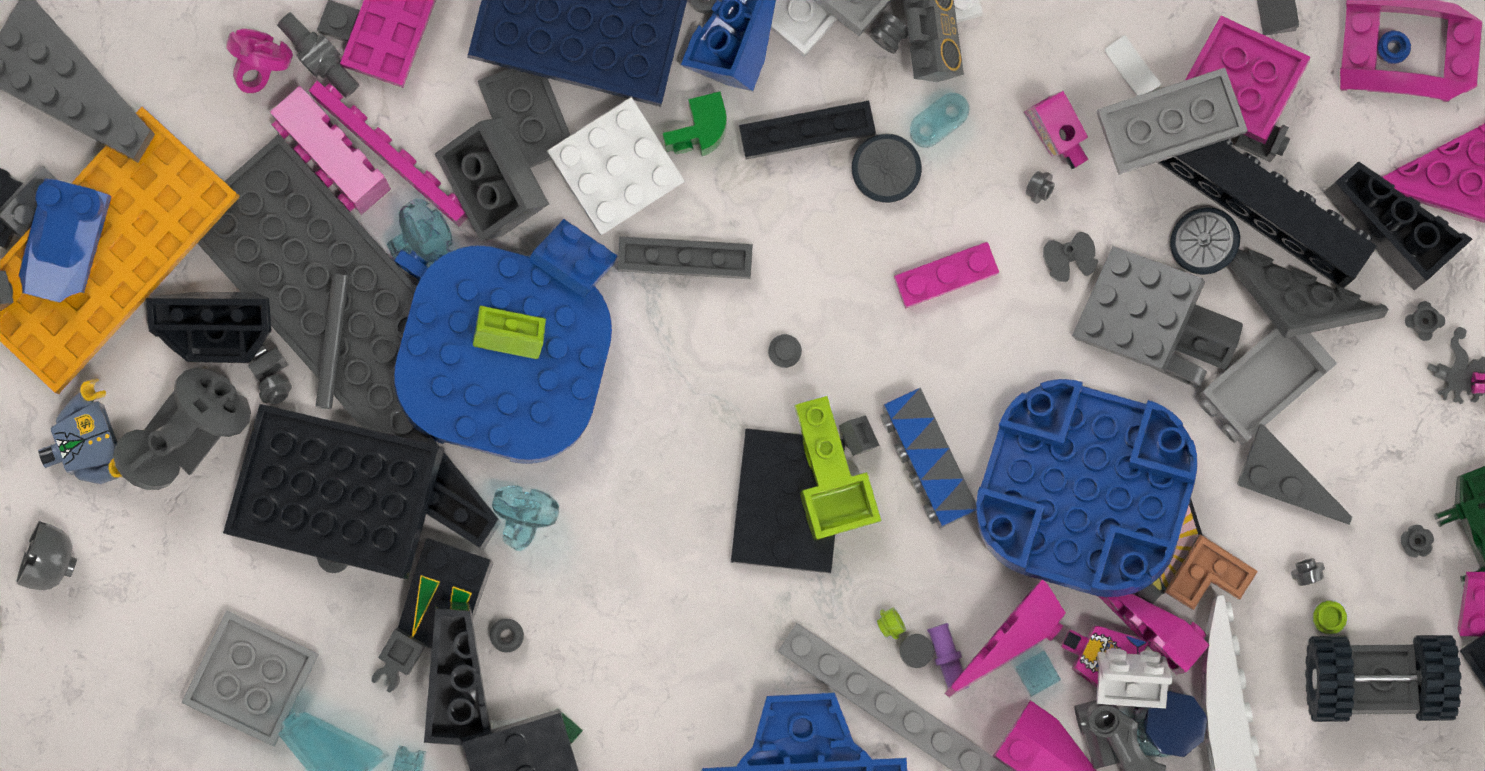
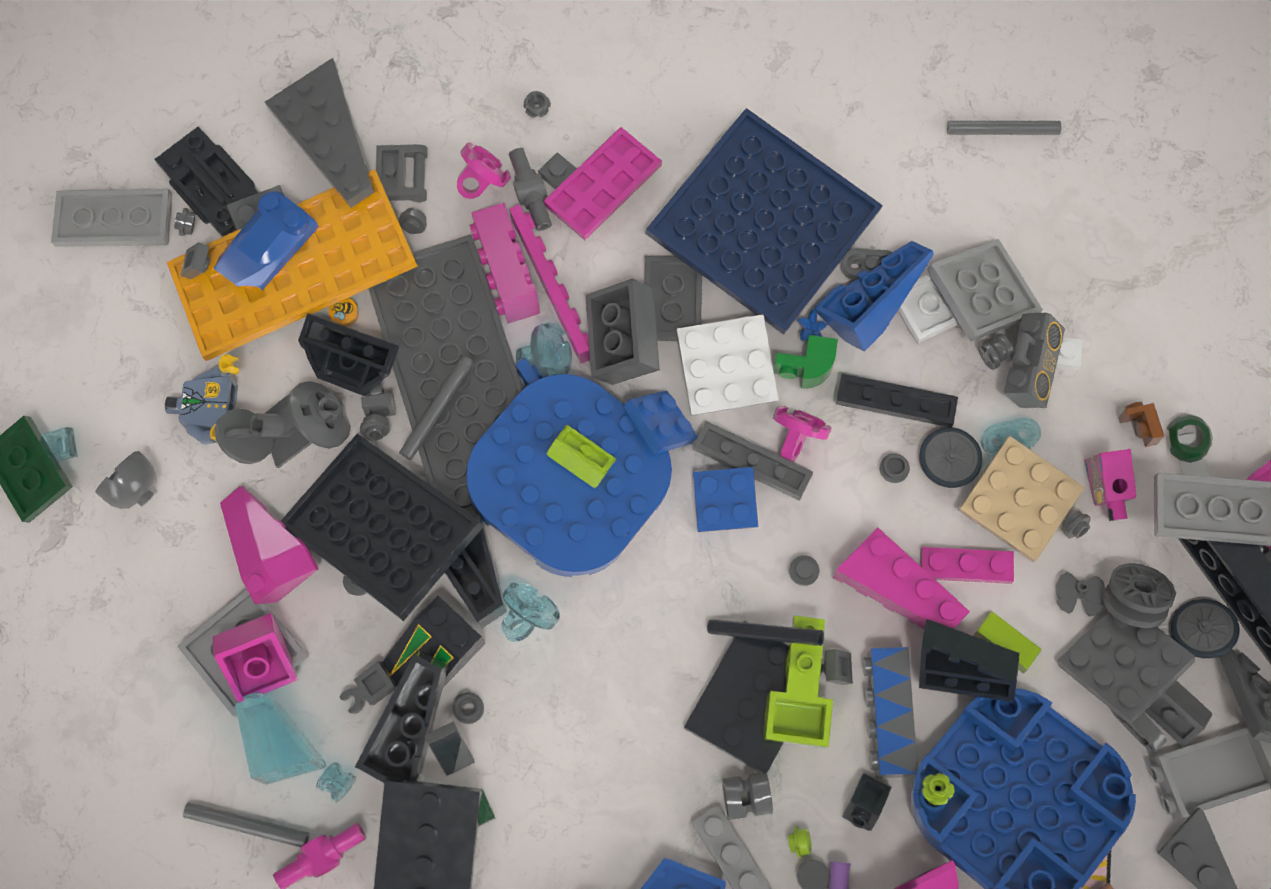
camera: 30 degrees right, 10 degrees down
(156, 97) = (392, 170): none -> dark grey plate
(181, 279) = (344, 312): none -> tile
(207, 144) = (413, 221): none -> dark grey plate
(225, 568) = (265, 552): none -> dark pink wedge
(269, 680) = (254, 657): none -> dark pink slope
(509, 683) = (449, 748): none -> tile
(675, 311) = (725, 499): none -> blue plate
(686, 86) = (811, 326): none -> blue plant
(720, 201) = (800, 425): none -> dark pink tile
(772, 433) = (765, 632): none -> black piece
(832, 596) = (758, 794): none -> dark grey wheel
(833, 203) = (894, 468): none -> dark grey plate
(886, 325) = (899, 583): none -> dark pink wedge
(940, 557) = (867, 802): none -> black bracket
(974, 183) = (1021, 499): none -> tan plate
(984, 380) = (966, 664): none -> black wedge
(1006, 525) = (937, 797): none -> lime plate
(1016, 337) = (999, 632): none -> lime slope
(1073, 50) = (1148, 423): none -> dark orange bracket
(1119, 62) = (1182, 451): none -> dark green piece
(1127, 236) = (1139, 595): none -> dark grey wheel

